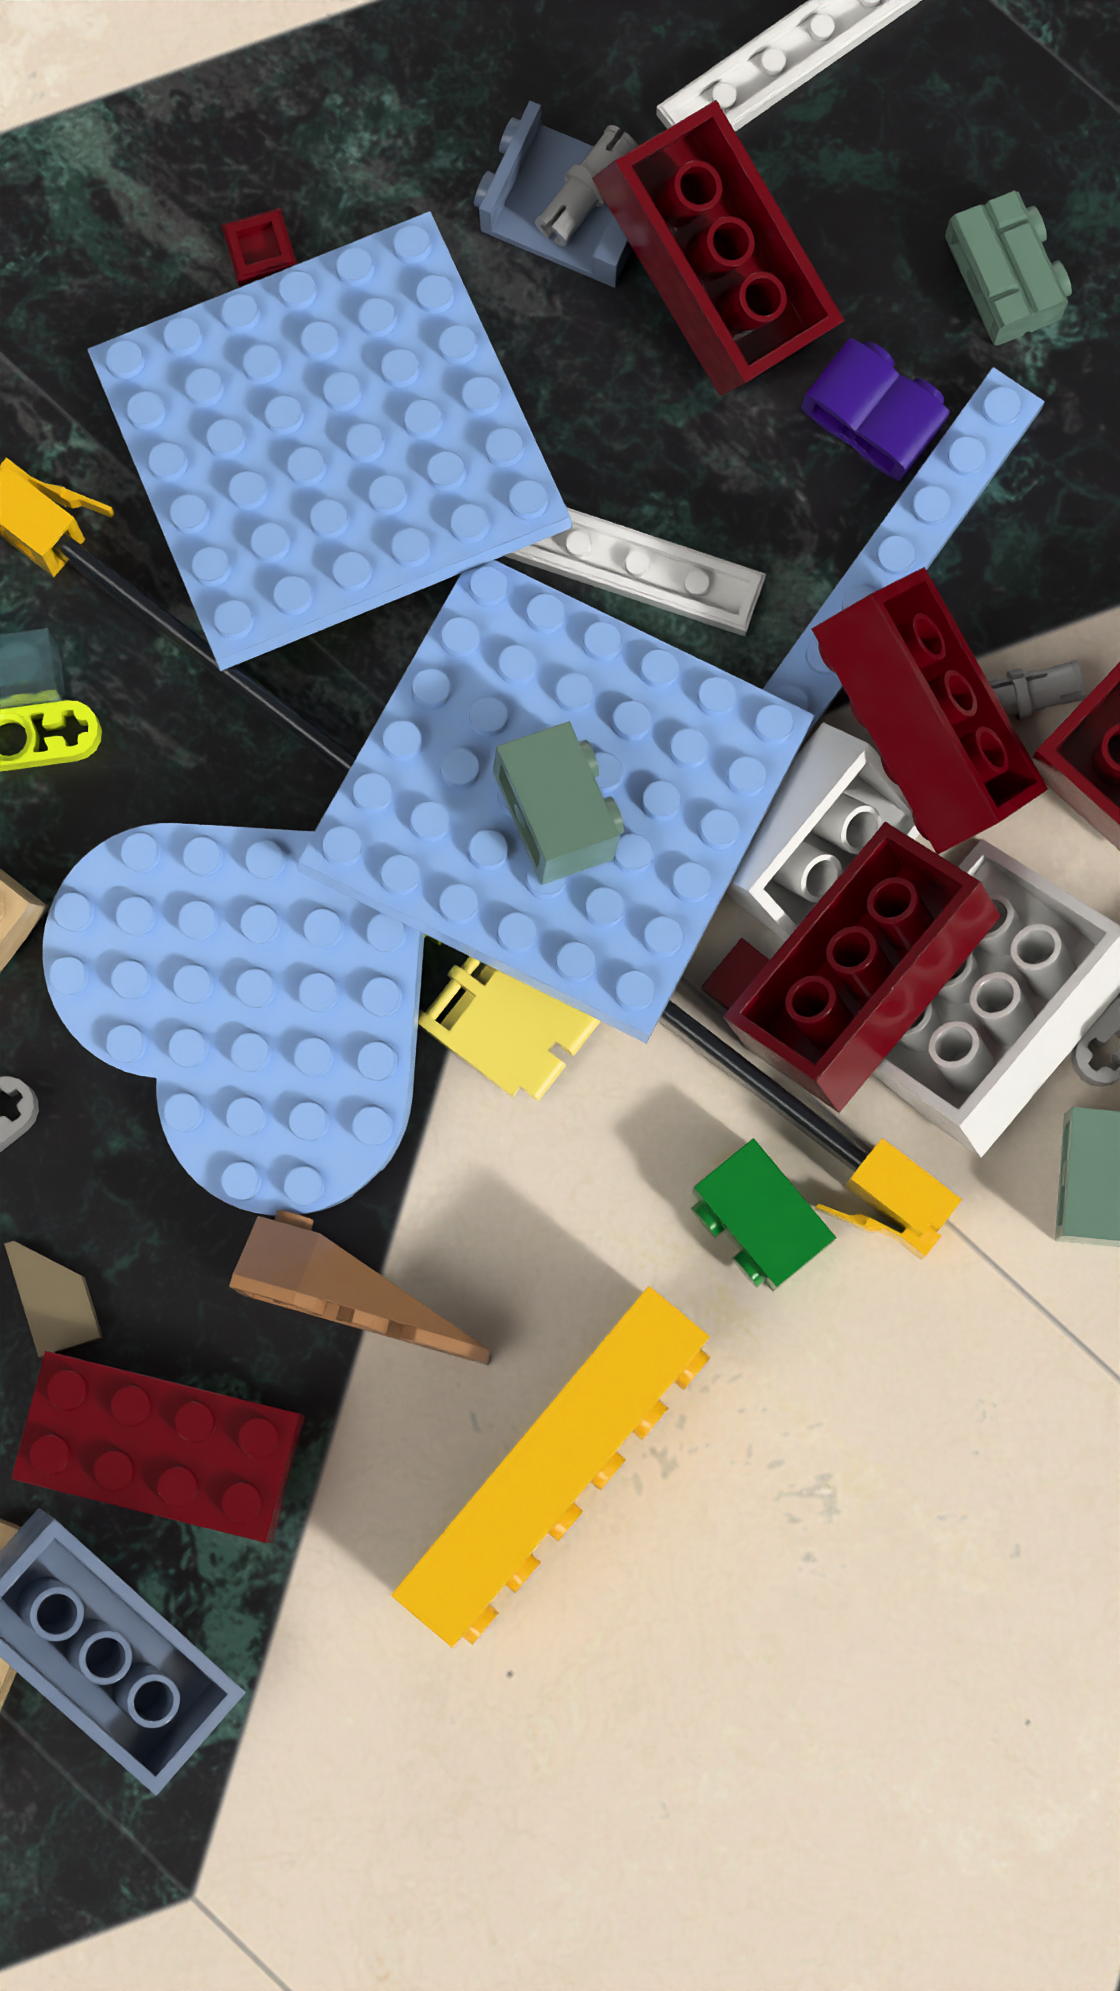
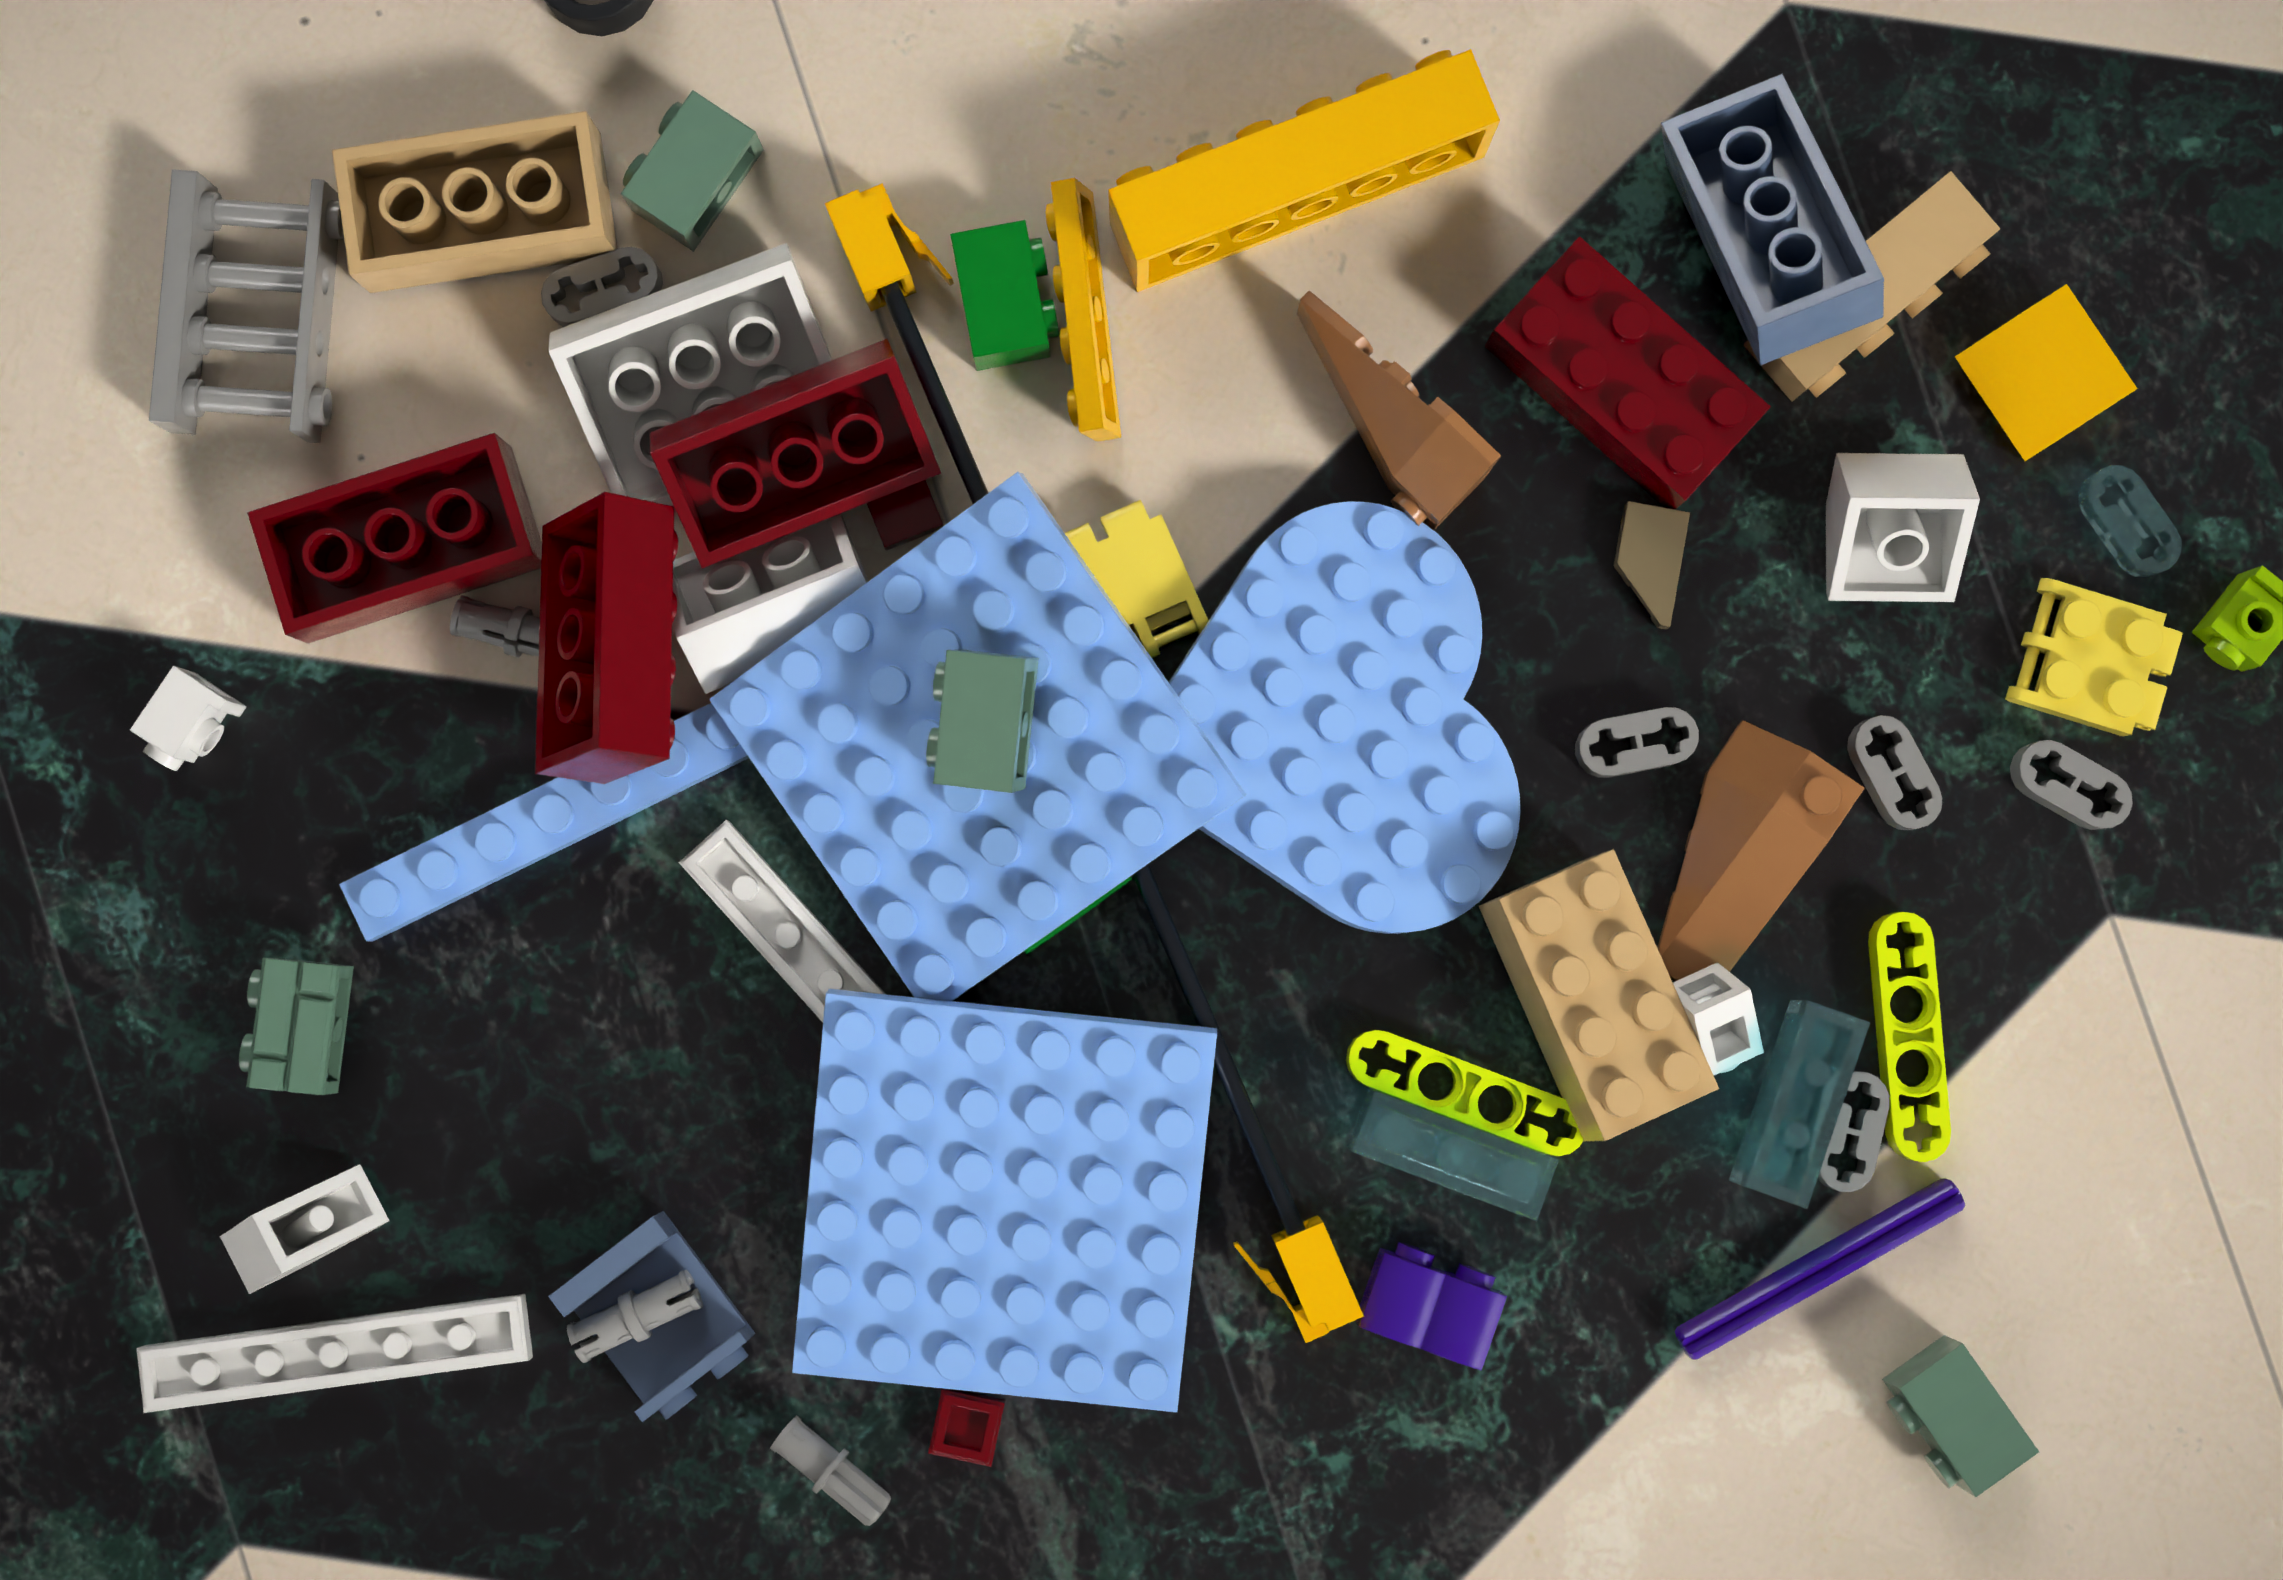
camera: 155 degrees left, 5 degrees up
(352, 150) = (831, 1471): none -> light grey axle
(668, 1224) = (1081, 289): none -> yellow plate
(717, 248) = (550, 1176): dark red brick -> none
(876, 407) = (492, 959): dark purple brick -> none
(903, 109) = (303, 1228): none -> white slope

